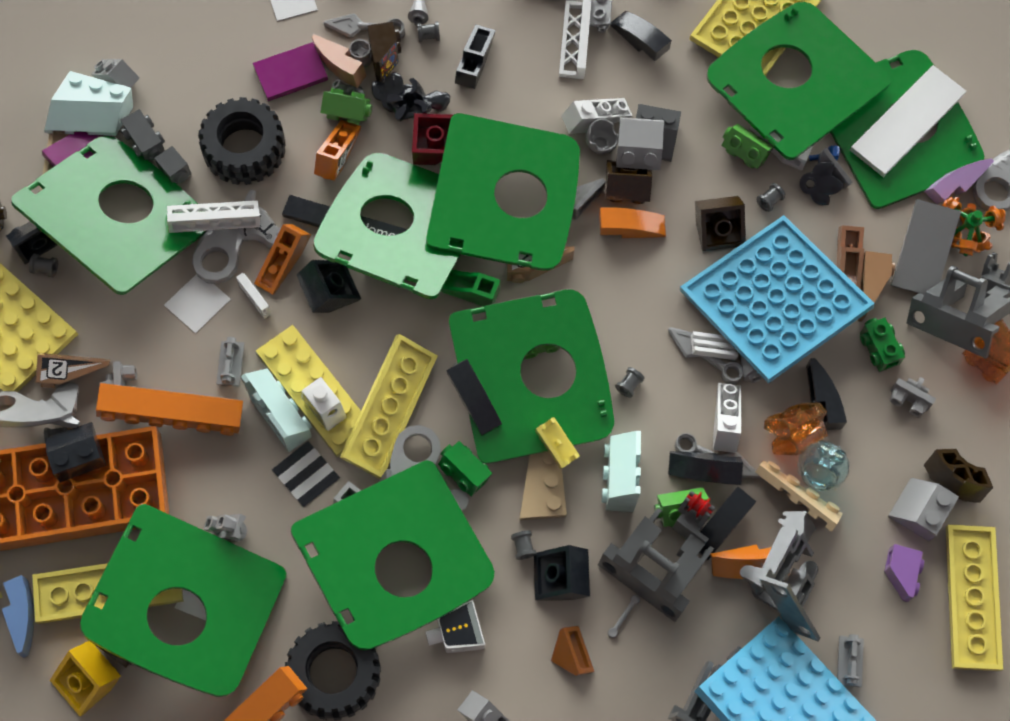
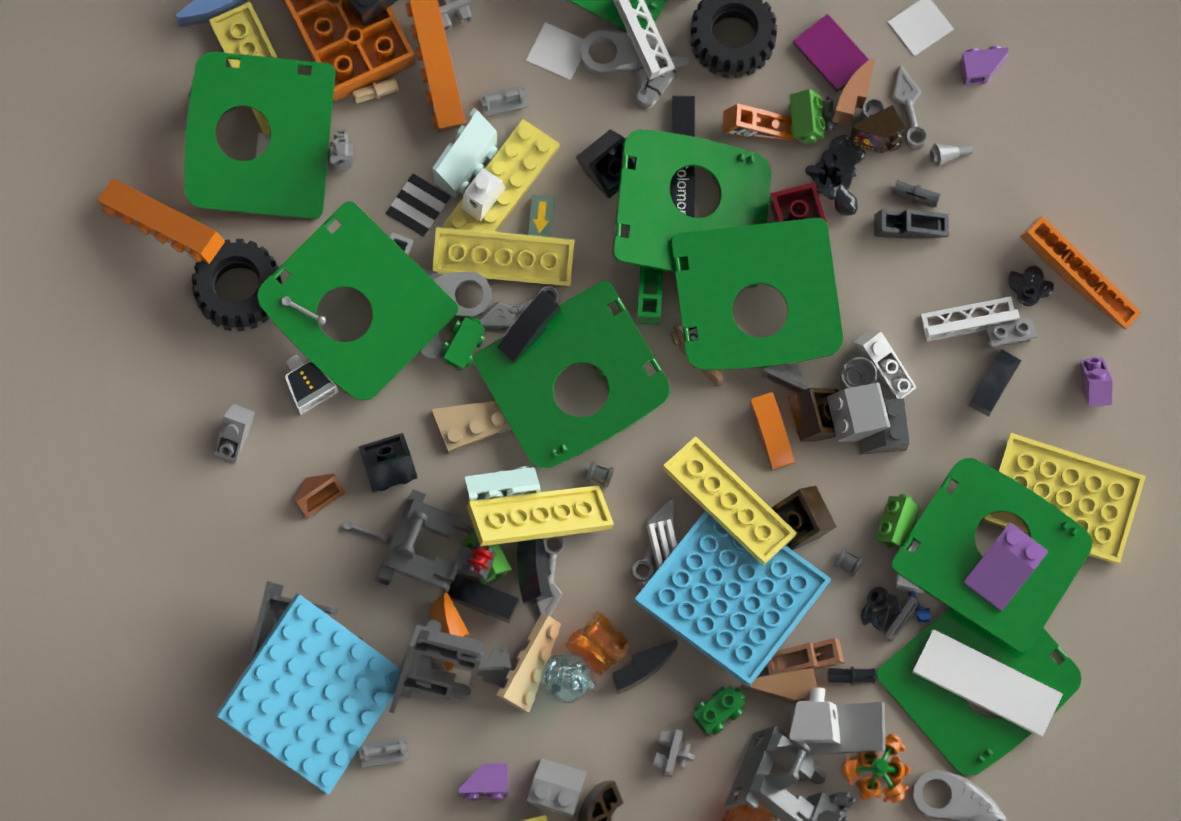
camera: 75 degrees right, 5 degrees up
(84, 677) = (171, 79): yellow slope -> none
(175, 478) = (375, 91): none -> tan axle
(253, 295) = (577, 98): white tile -> none
(282, 257) = (626, 111): orange slope -> none
(359, 363) = (541, 215): none -> sand green tile
(374, 620) = (286, 301): none -> light grey hinge
(428, 31) = (923, 170): dark grey bush -> none
(444, 425) = (502, 315): none -> light grey piece
(447, 44) = (916, 193): none -> dark grey pin
(523, 545) = (405, 419): dark grey bush -> none
(557, 443) = (509, 417): light yellow hinge -> none
(664, 443) = (539, 515): none -> light yellow plate
(690, 275) = (729, 501): none -> light yellow plate
(727, 418) = (592, 576): white slope -> none
(816, 66) = (1005, 566): none -> medium lavender slope
(874, 225) = (851, 675): none -> black axle
(917, 261) = (815, 720): none -> white torso
(957, 180) = (932, 748): lavender slope -> none

